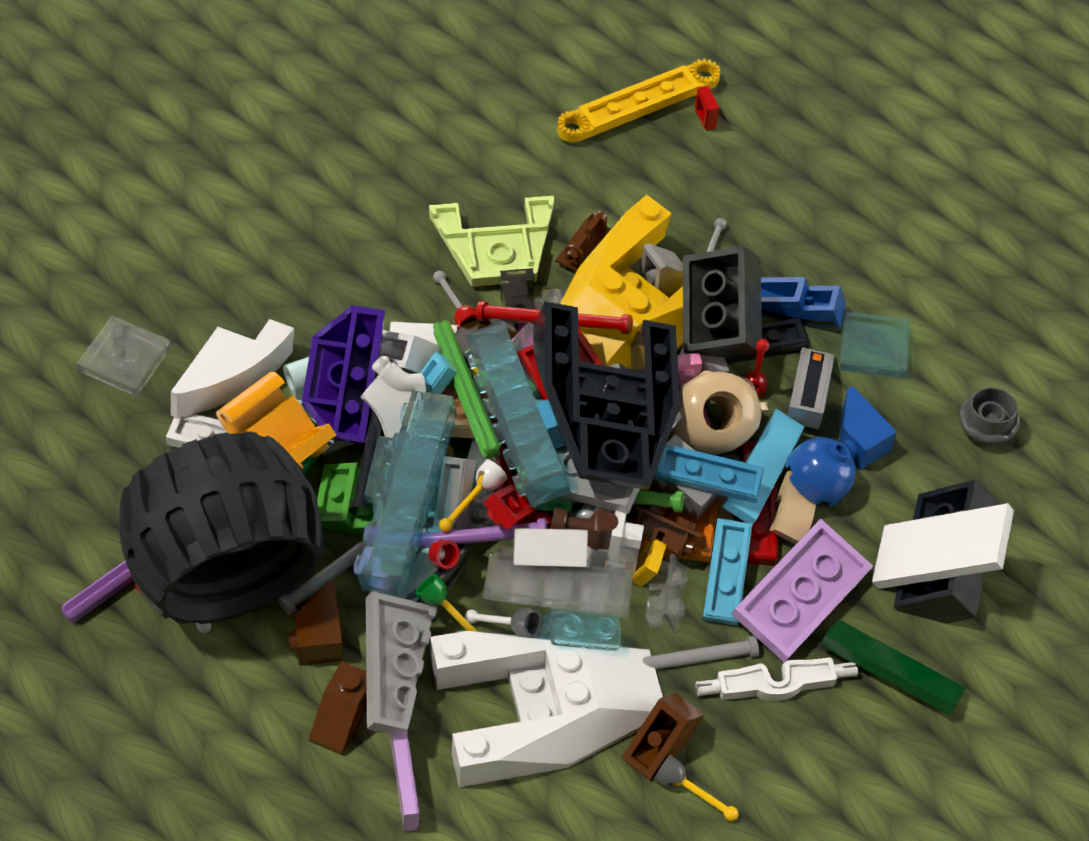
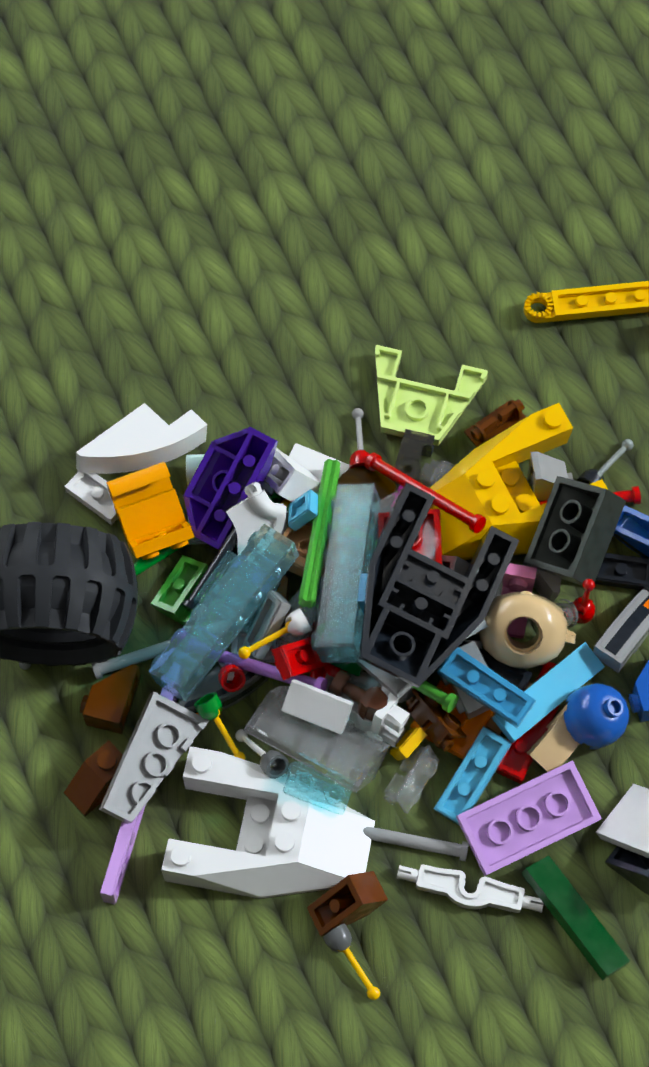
camera: 30 degrees right, 10 degrees up
(124, 355) = (67, 399): clear tile -> none

